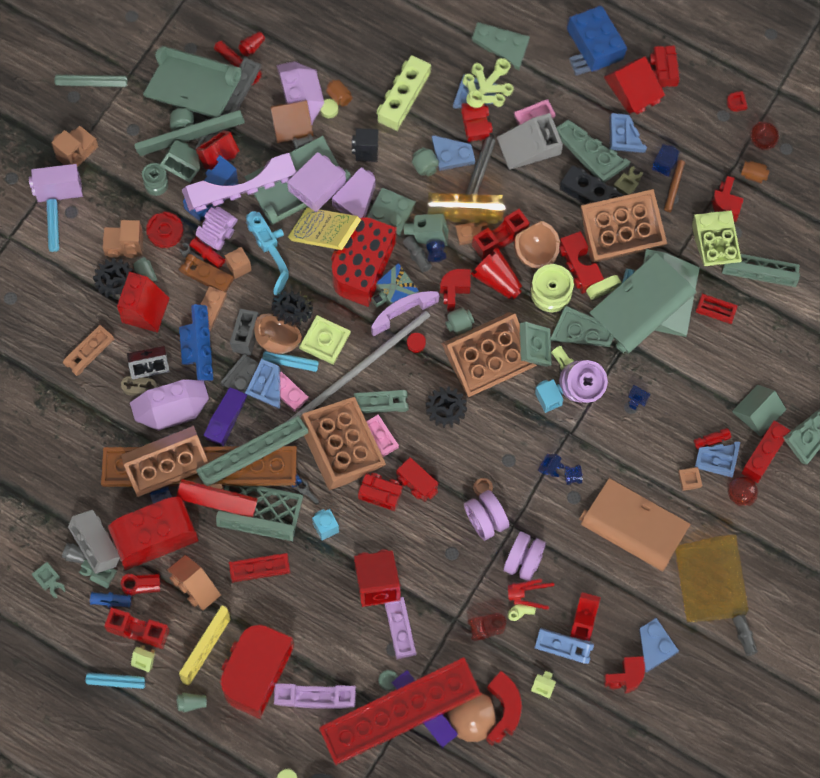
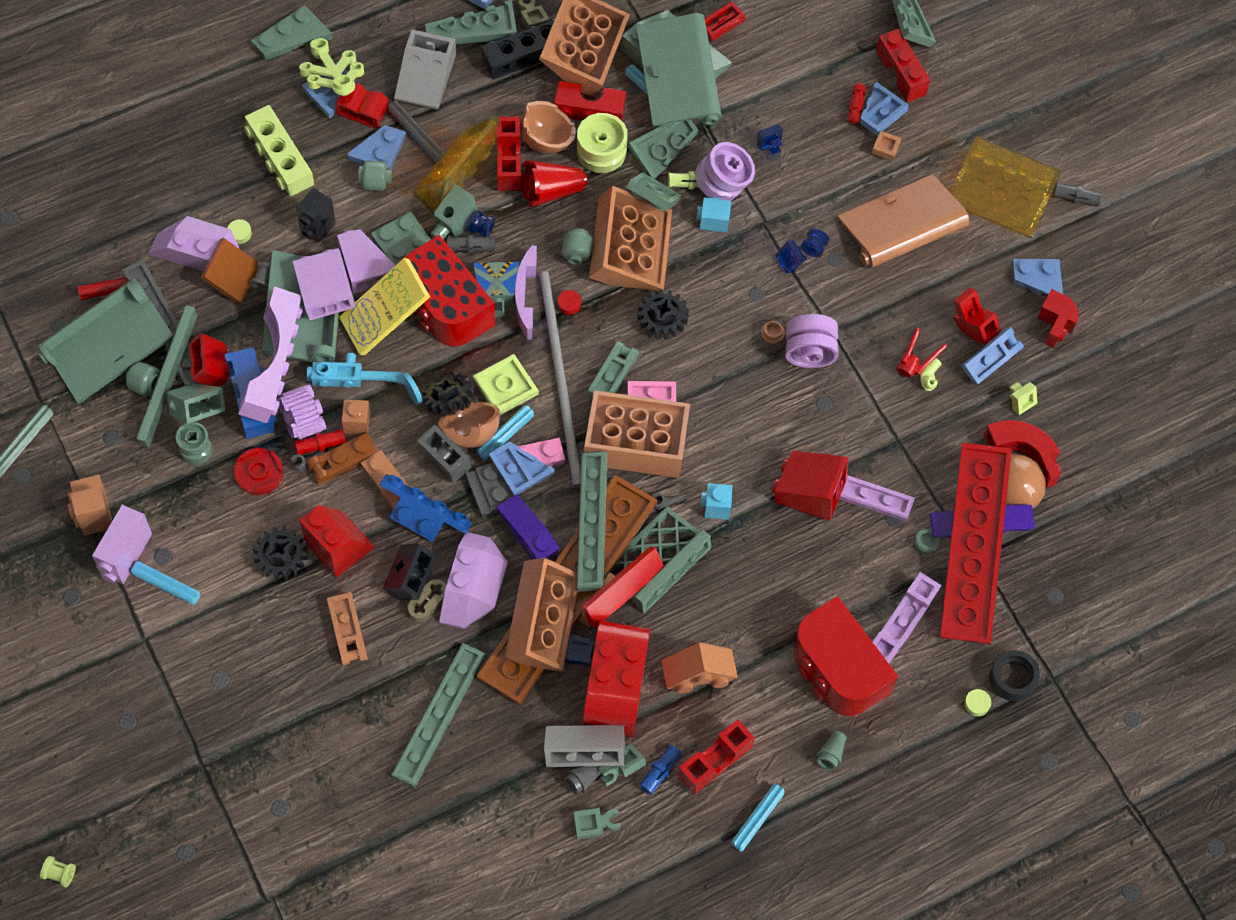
camera: 60 degrees left, 5 degrees down
(65, 441) = (438, 715): none -> sand green tile
(124, 240) = (246, 515): nougat brick -> none
(143, 584) = (665, 726): red piece -> none
(143, 659) = (753, 772): yellowish green tile -> none
(145, 268) = (290, 515): sand green cone -> none
(205, 646) = (782, 695): light yellow tile -> none
(251, 44) = (105, 262): red cone -> none
(259, 567) = (720, 597): red tile -> none
(339, 93) = (230, 209): dark orange brick -> none
(380, 491) = (715, 428): red brick -> none
(417, 479) = (725, 386): red brick -> none
(452, 283) = (532, 231): red brick -> none
(467, 231) = (482, 185): nougat plate -> none
(485, 626) = (927, 415): clear red piece -> none
(527, 557) = (879, 332): lavender wheel -> none
(534, 111) = (394, 50): bright pink plate -> none
(603, 287) = (631, 100): yellowish green beam -> none
(743, 491) = (928, 109): clear red hair -> none
(760, 409) = (851, 46): sand green slope -> none

